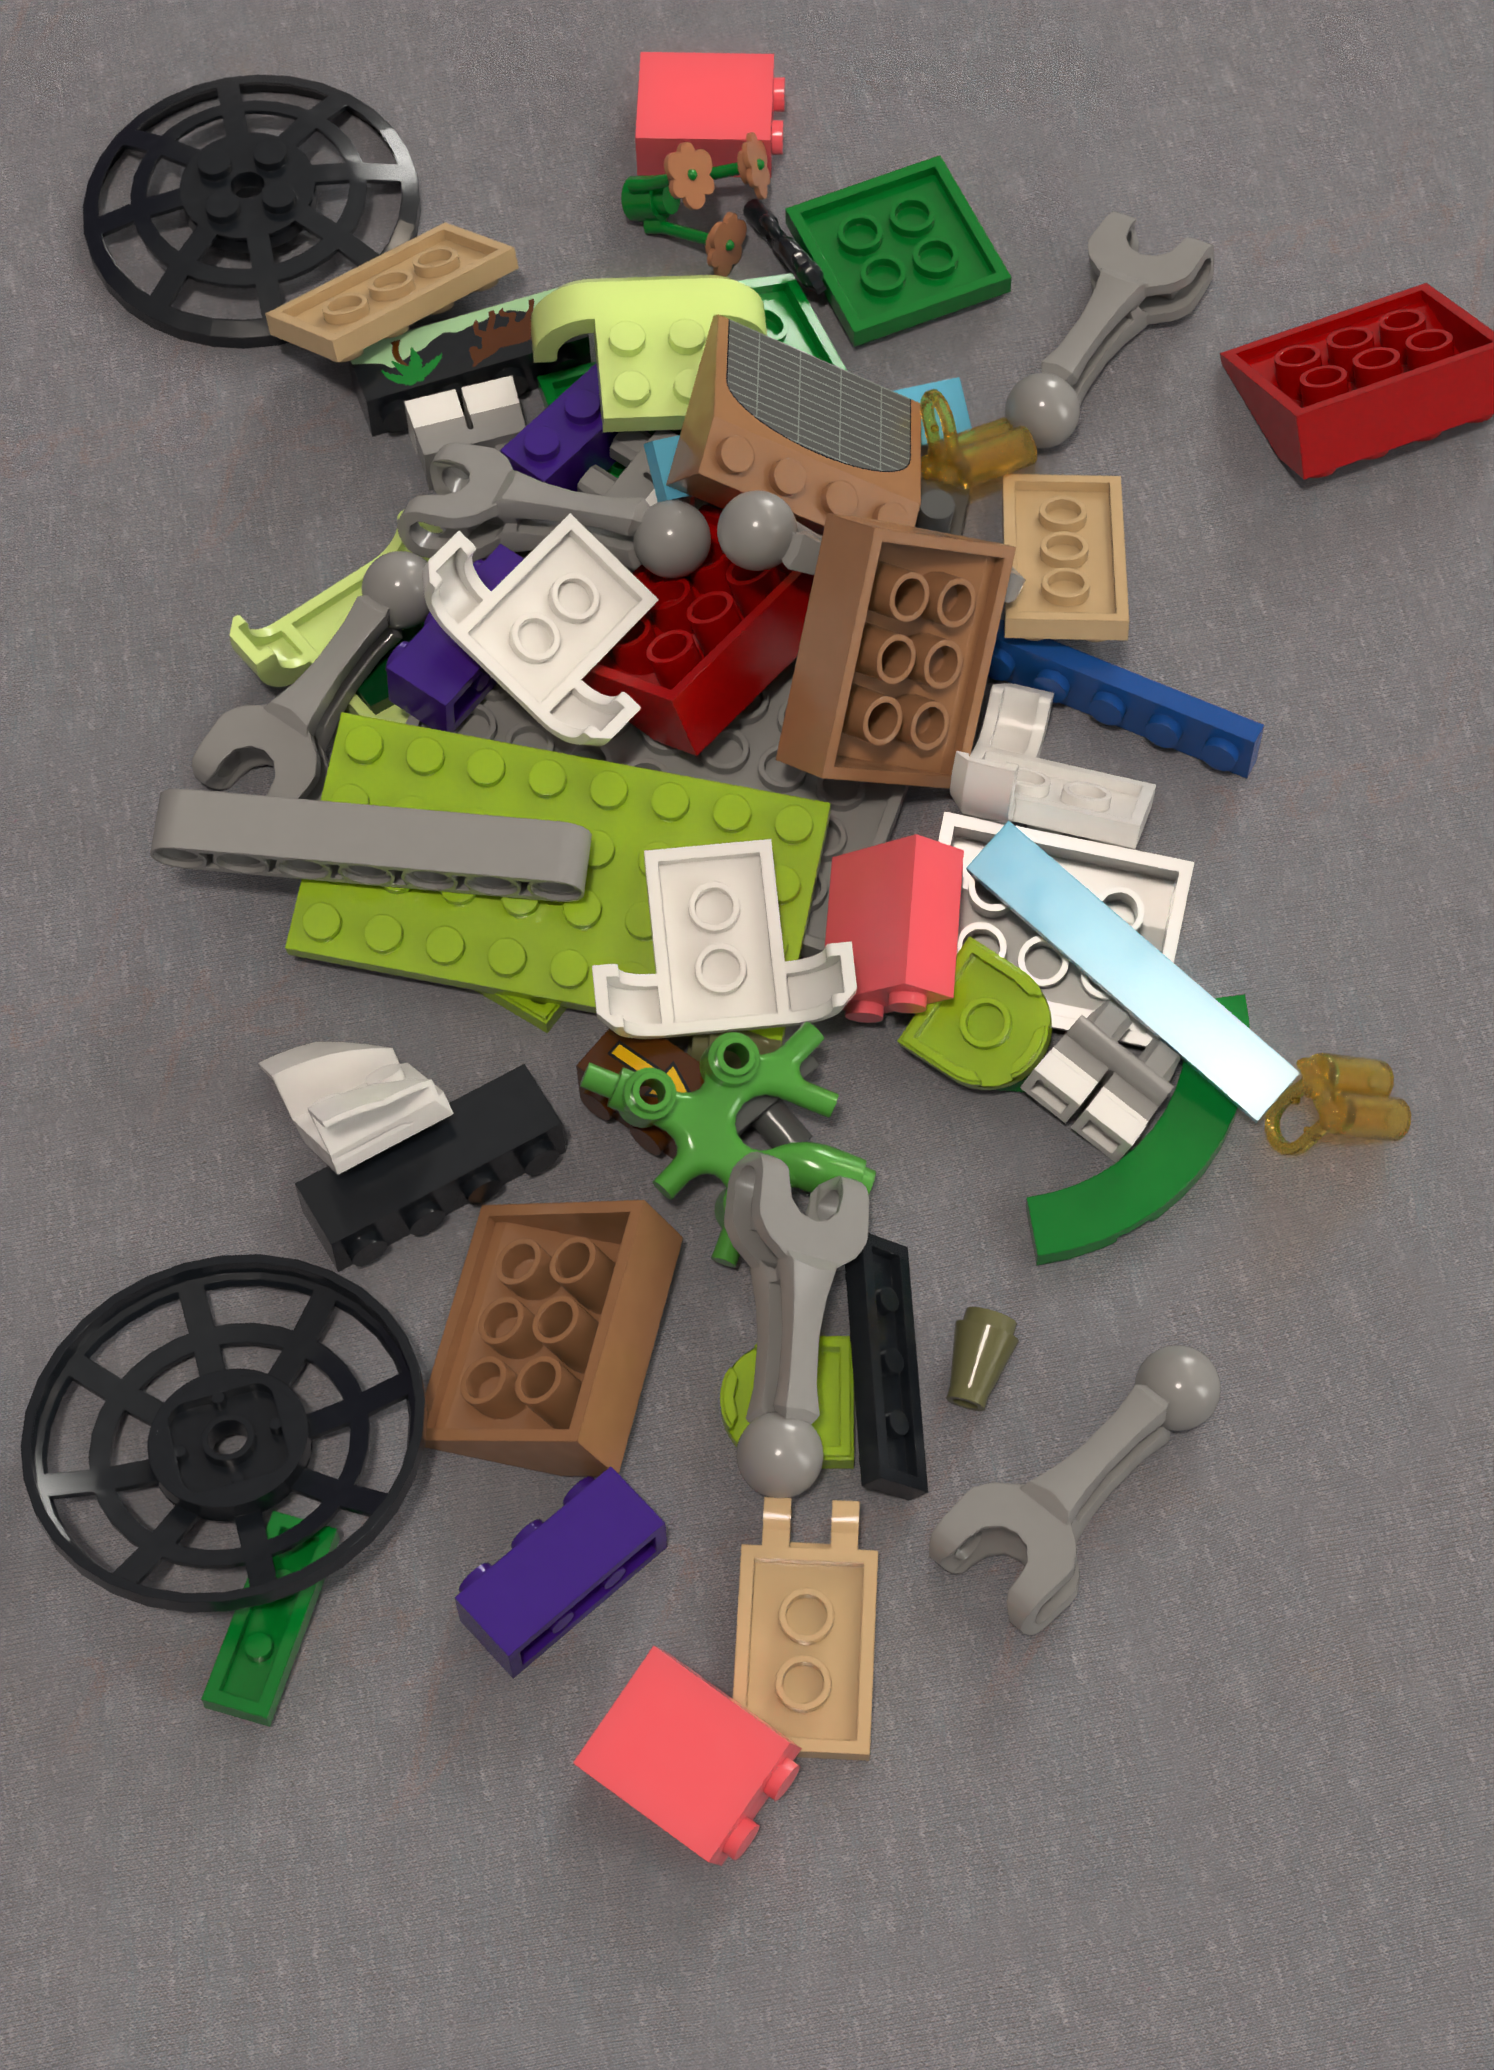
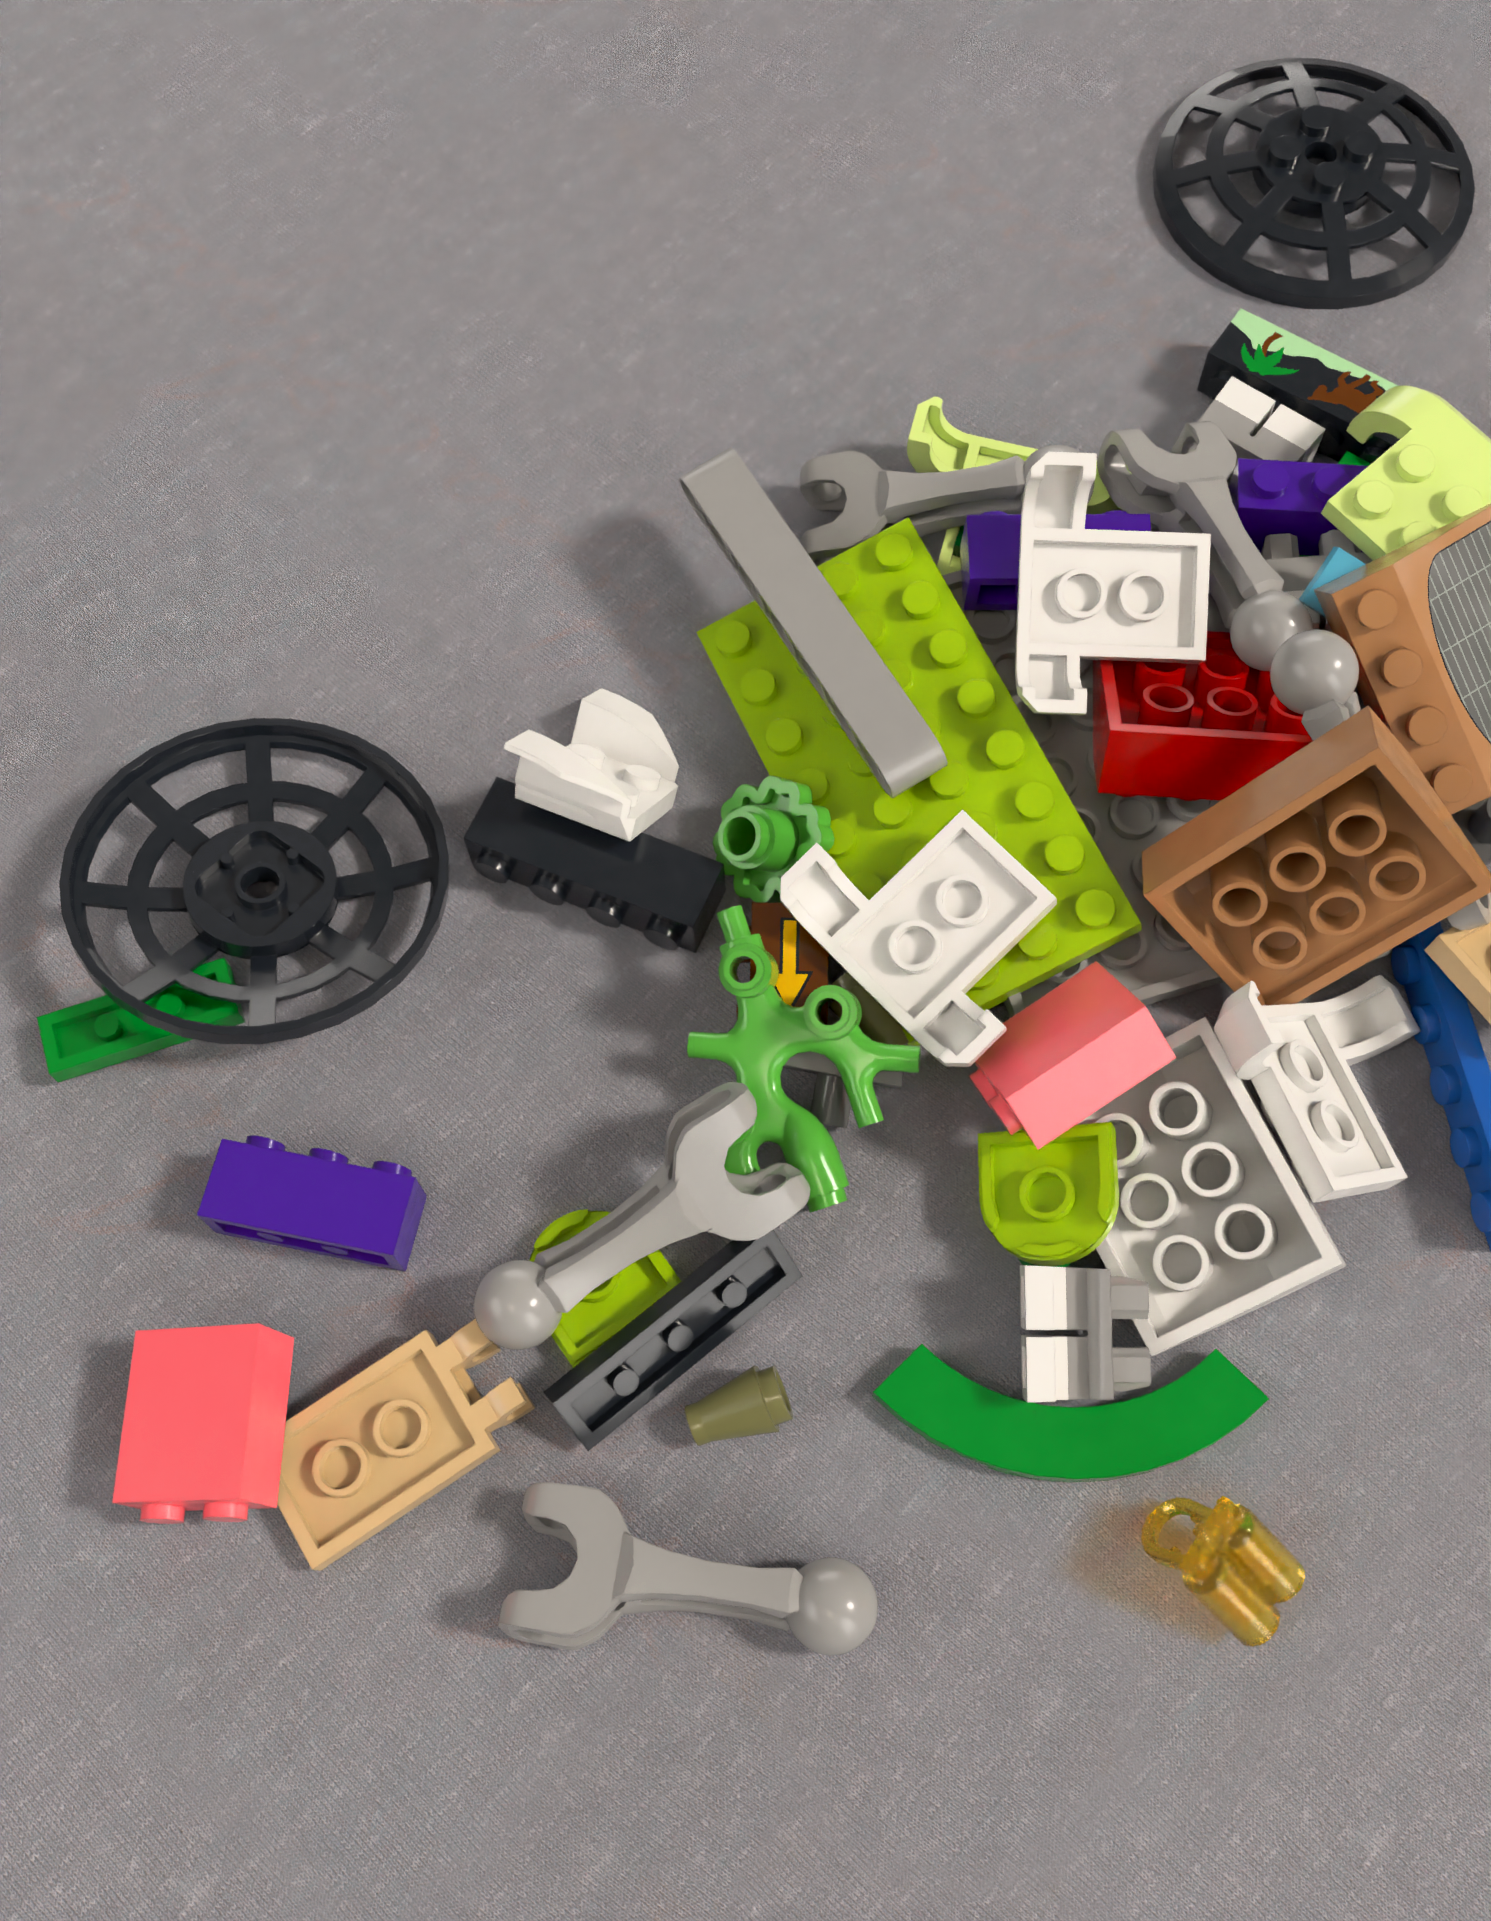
camera: 55 degrees right, 5 degrees up
(392, 292) = (1322, 303): tan plate -> none
(545, 991) = (767, 833): none -> bright green plant
(551, 1334) = (514, 1056): medium nougat slope -> none
(1133, 971) = (1192, 1289): tile -> none

